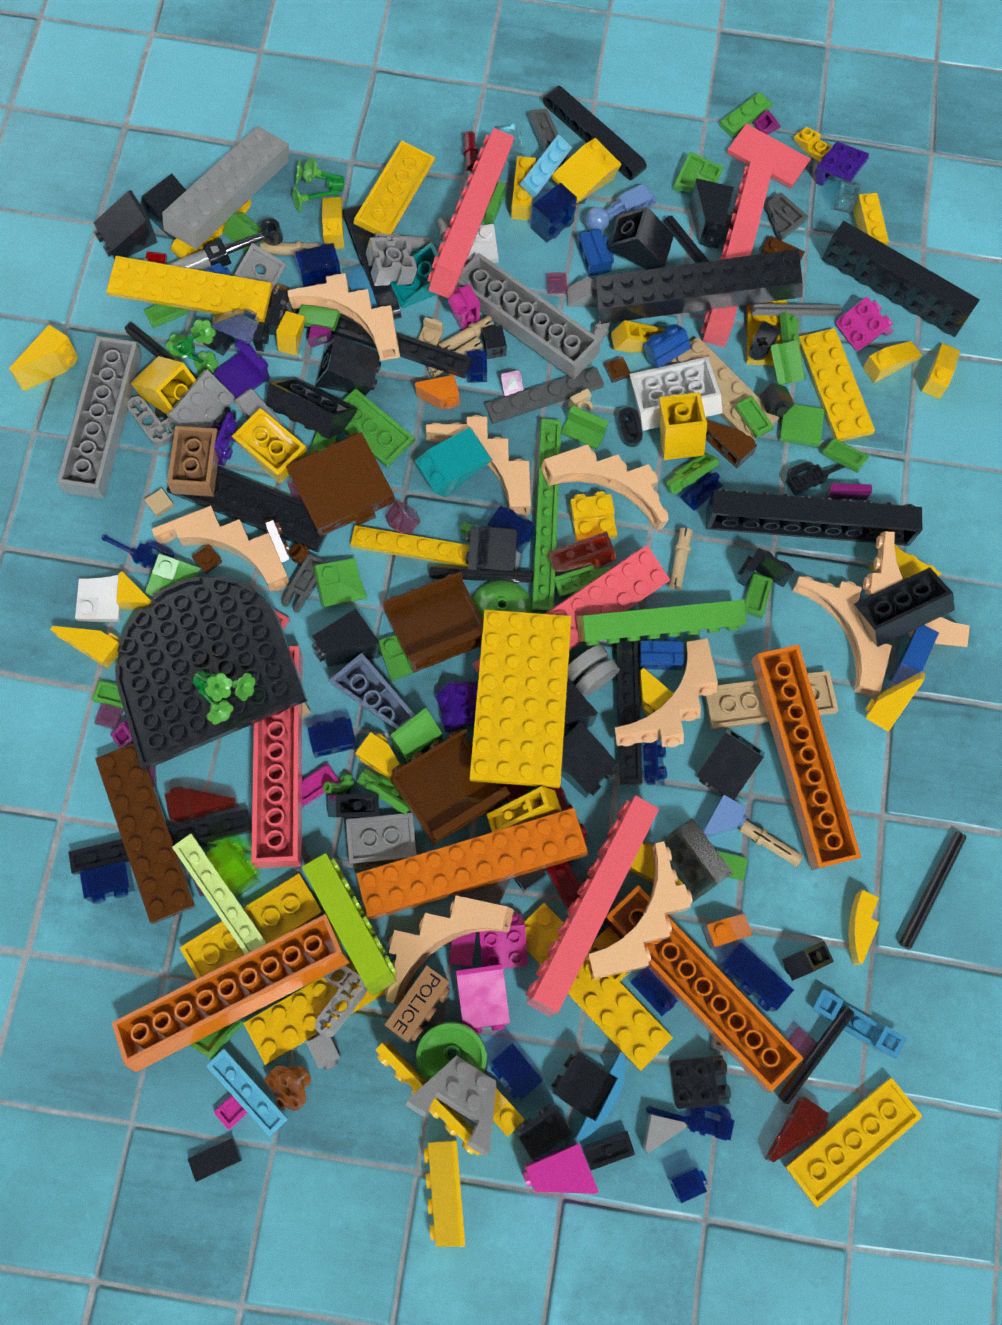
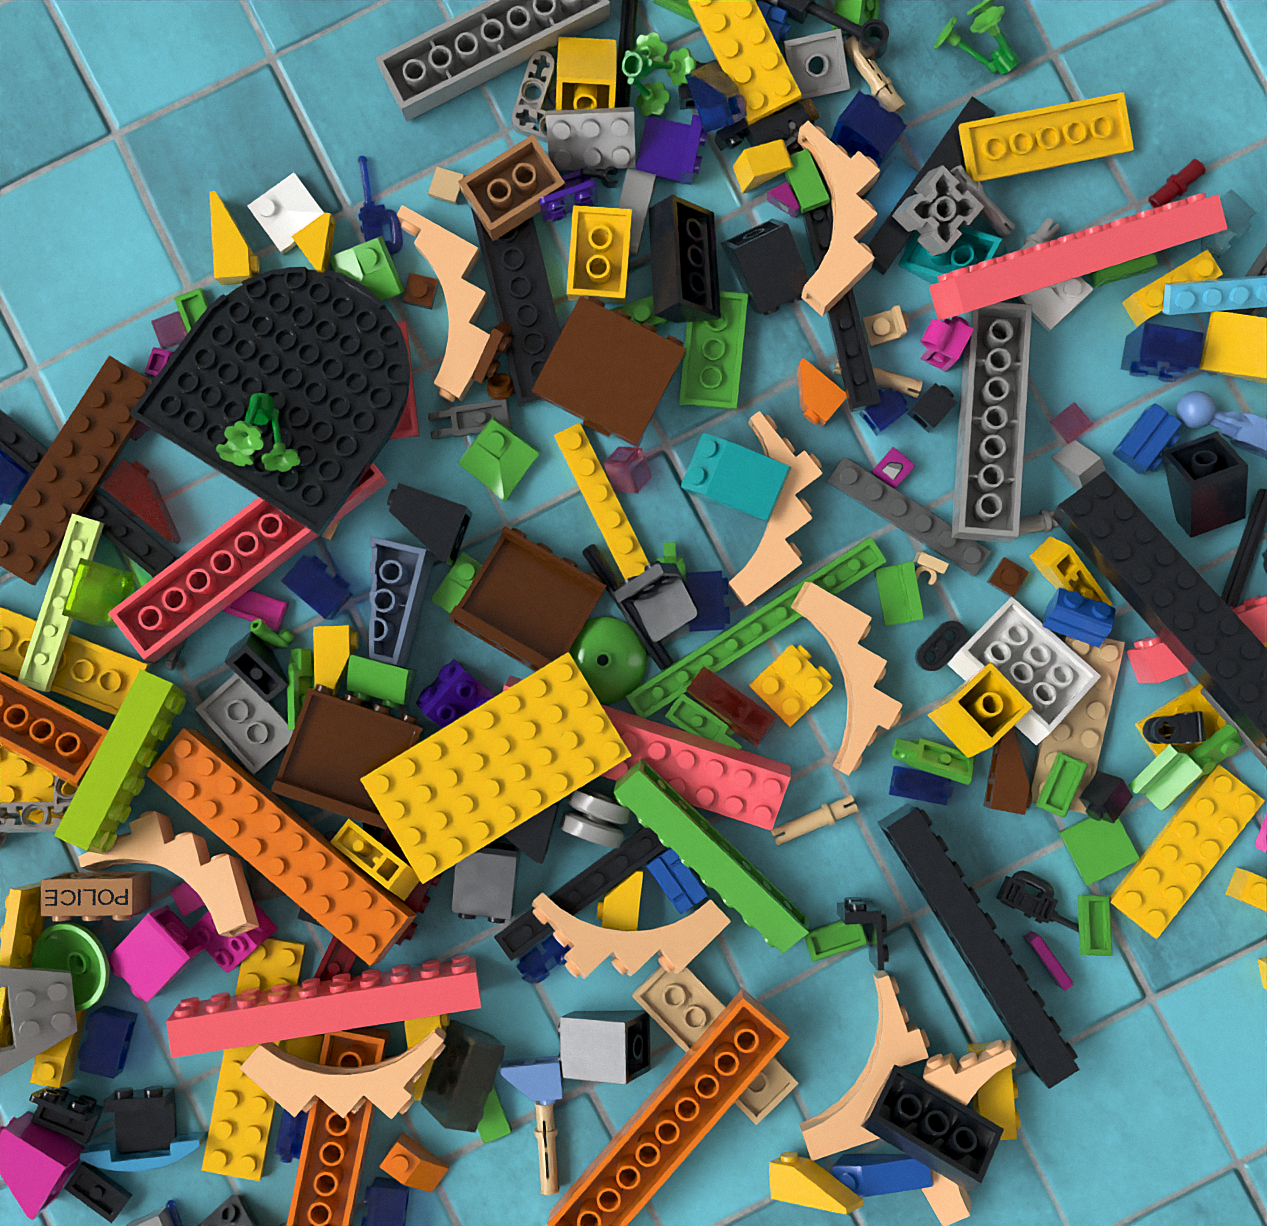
camera: 60 degrees right, 15 degrees up
(333, 221) = (949, 97): yellow slope -> none
(467, 334) = (927, 371): tan pin -> none

